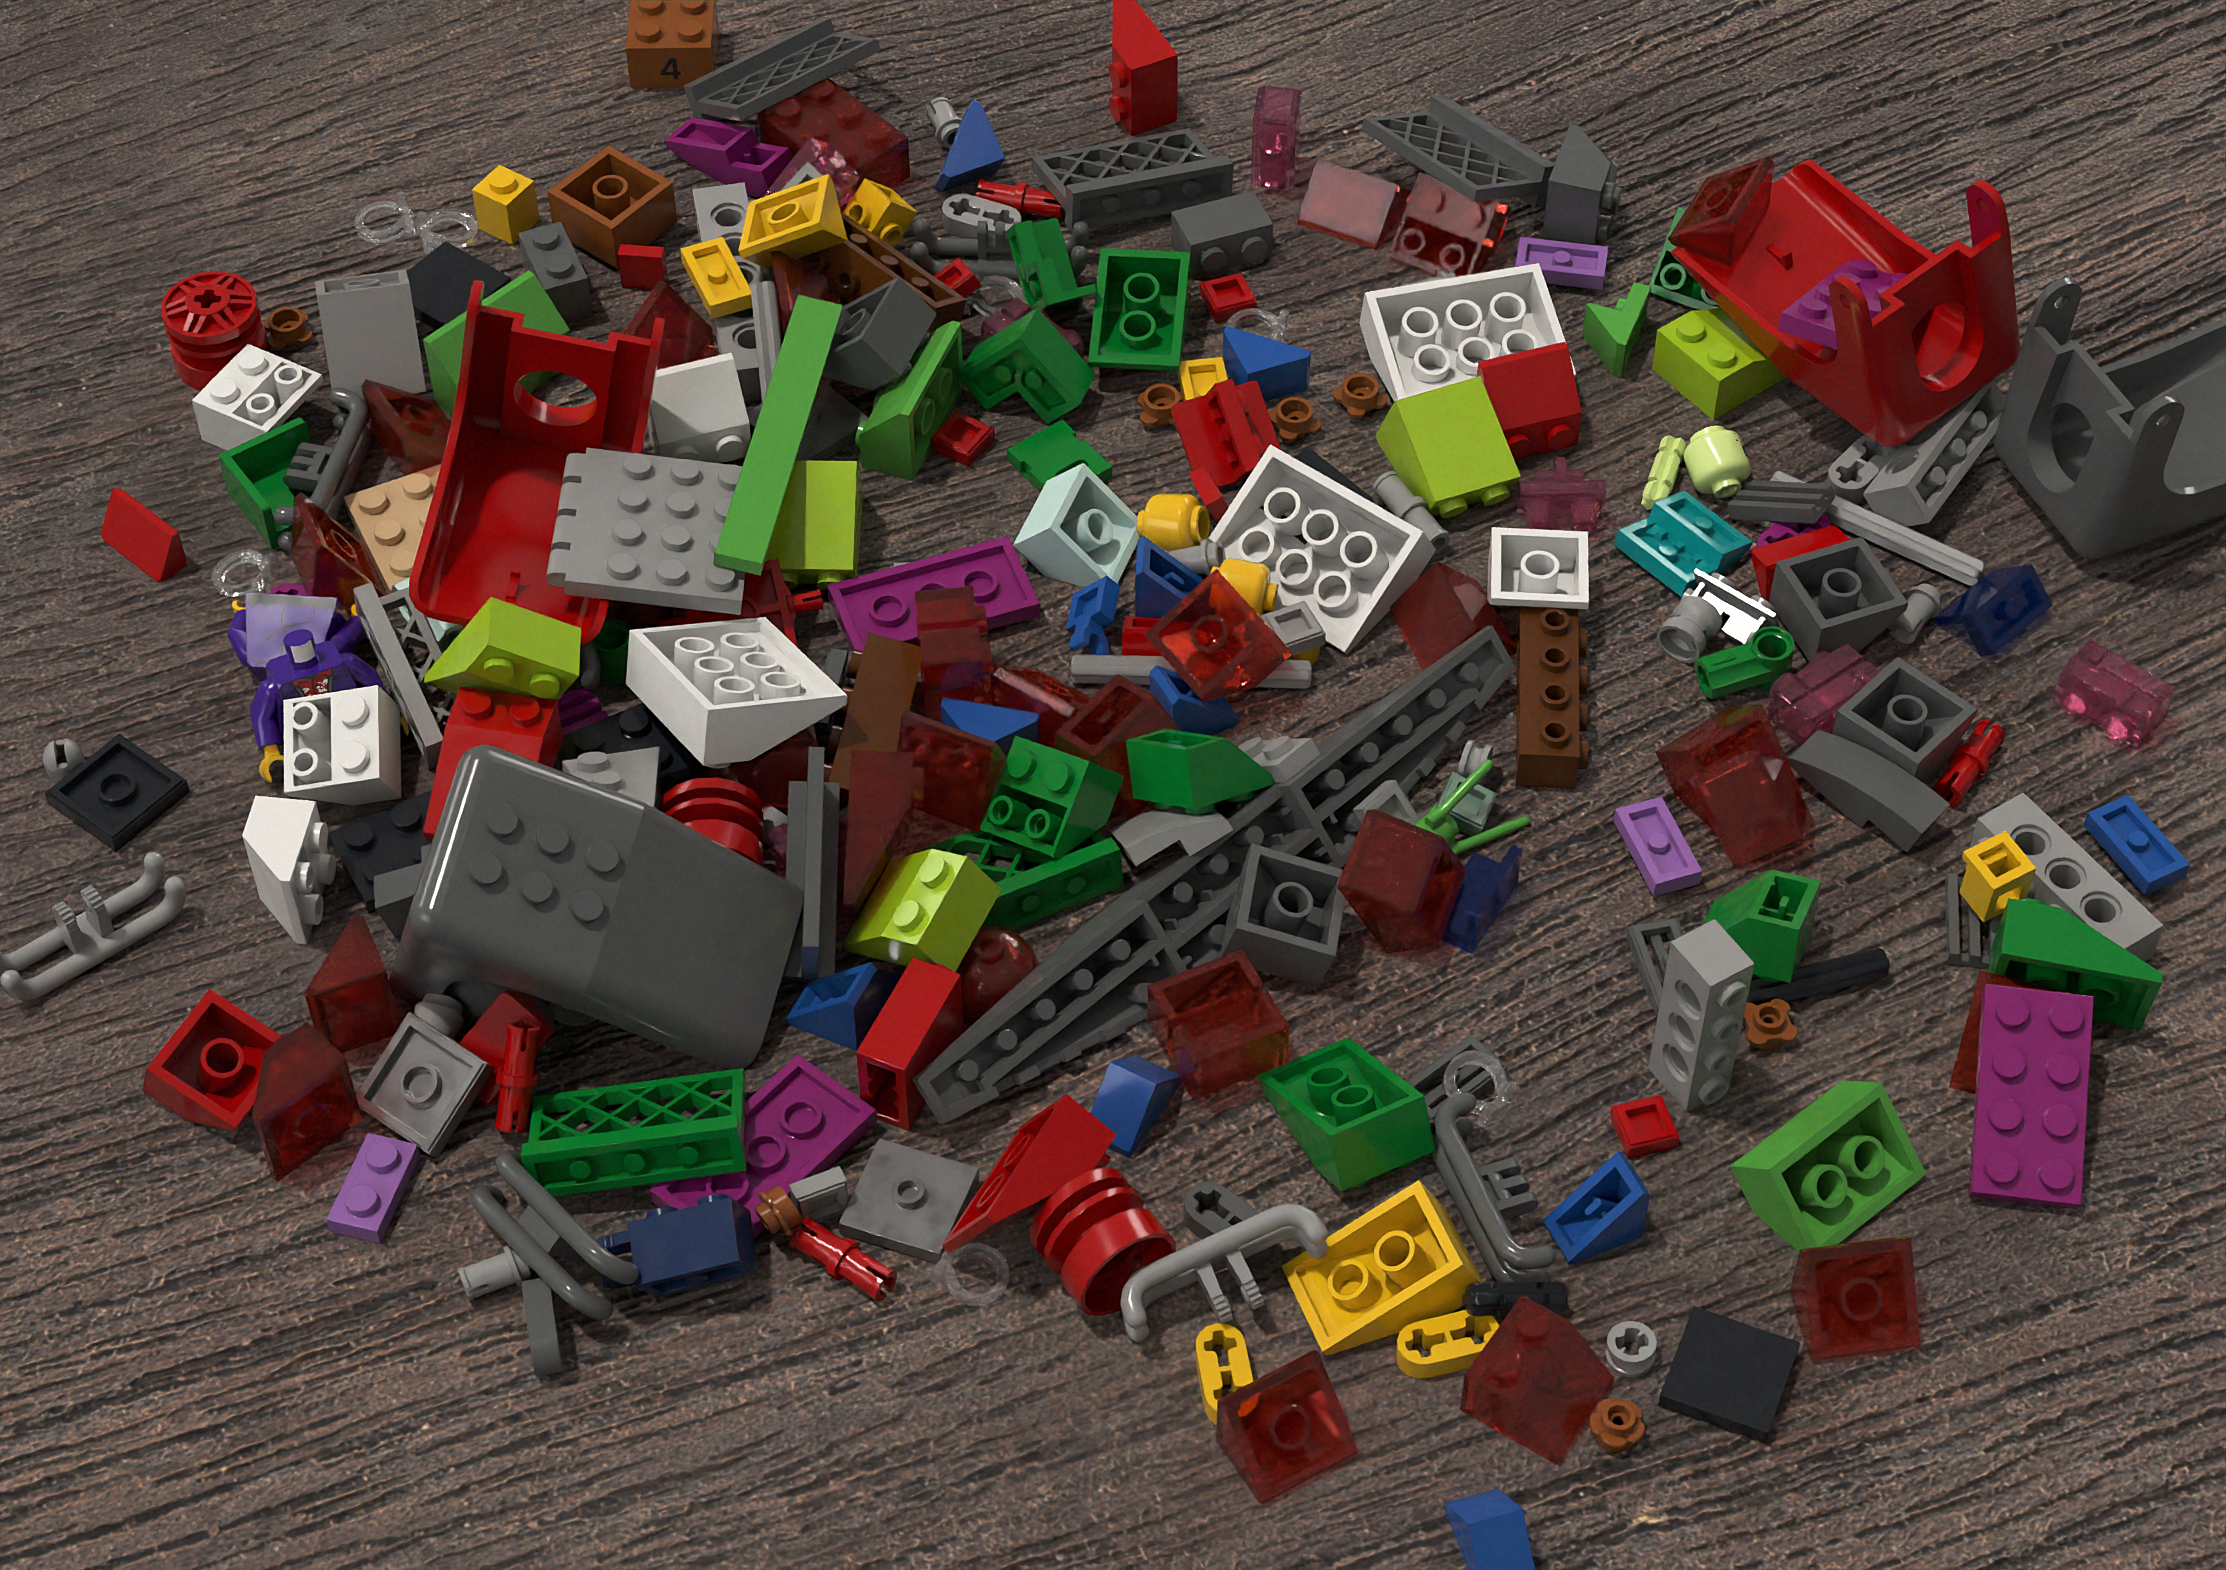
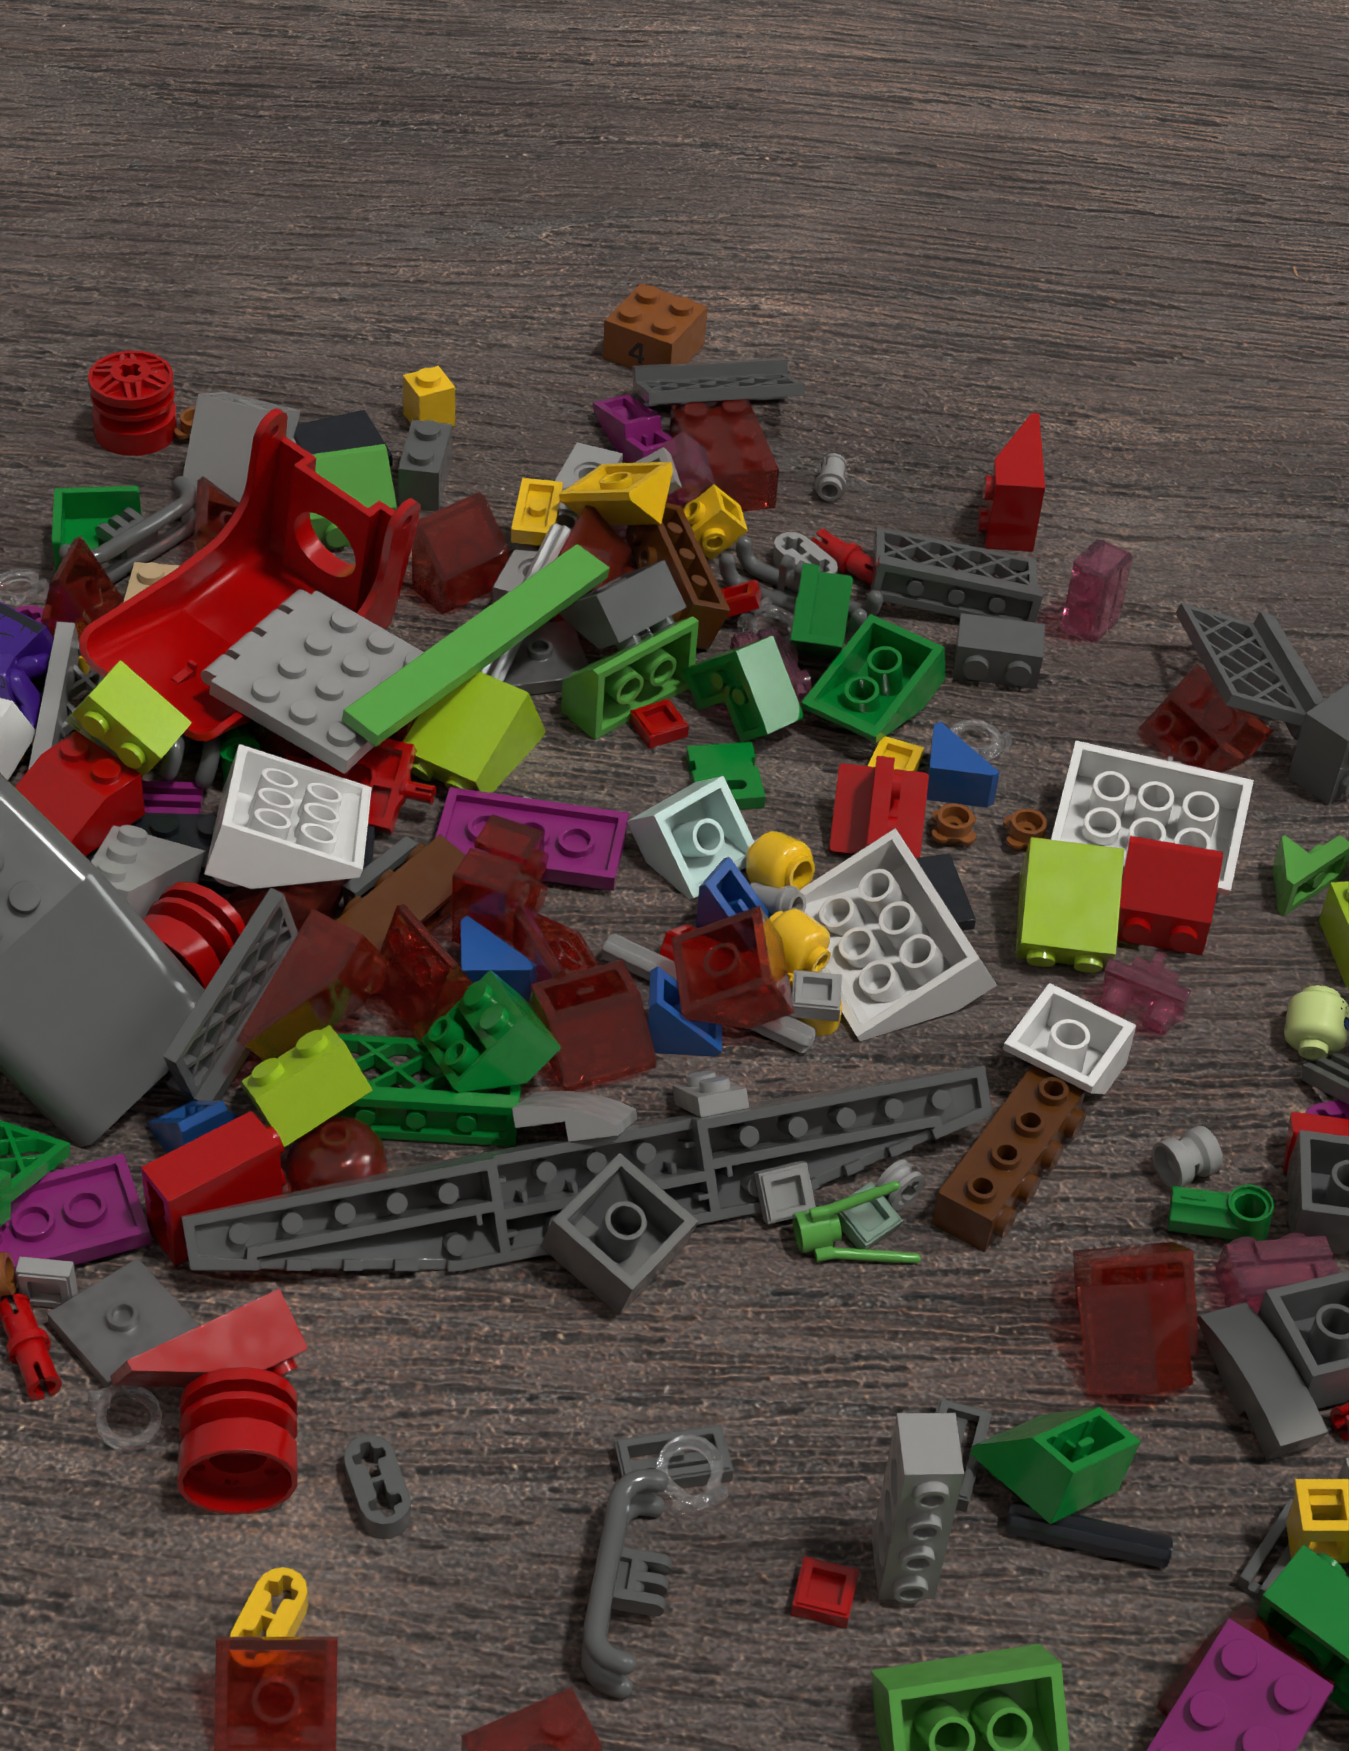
camera: 25 degrees right, 5 degrees down
(251, 397) = (121, 457): white slope -> none
(403, 225) = (348, 387): clear piece -> none
(429, 238) = (364, 390): clear piece -> none
(613, 204) = (507, 432): dark orange brick -> none
(642, 266) = (499, 486): red tile -> none
(699, 412) = (440, 599): white slope -> none
(973, 151) = (828, 504): blue slope -> none
(1090, 613) = (656, 906): blue plate -> none
(1132, 1100) = (374, 1332): blue slope -> none
(1157, 404) = (842, 754): dark orange plate -> none
(1191, 770) = (626, 1070): green slope -> none
(1209, 493) = (827, 849): red tile -> none
(1210, 1024) = (489, 1301): clear red piece -> none
(1214, 1253) = (320, 1502): light grey piece -> none
(1227, 296) = (970, 703): red tile -> none
(1349, 1113) = (553, 1441): green slope -> none
(1351, 204) = (1130, 671): clear red slope -> none
(1383, 1272) = (479, 1603): yellow slope -> none
(1401, 882) = (743, 1253): clear red slope -> none
(1410, 508) = (1000, 945): light grey pin -> none
(1443, 613) = (972, 1036): clear red slope -> none
(1446, 1341) = (490, 1695): yellow beam -> none
(1481, 898) = (815, 1306): clear blue panel -> none
(1482, 1299) = (540, 1674): black axle -> none
(1565, 261) = (1292, 796): medium lavender plate -> none
(1601, 1212) = (715, 1651): blue slope -> none
(1657, 846) = (1019, 1338): medium lavender plate -> none
(1663, 471) = (1260, 1013): yellowish green axle -> none
(1681, 538) = (1238, 1081): teal slope -> none
(1744, 613) = (1236, 1145): hinge -> none
(1767, 1035) = (1007, 1567): dark orange plate -> none

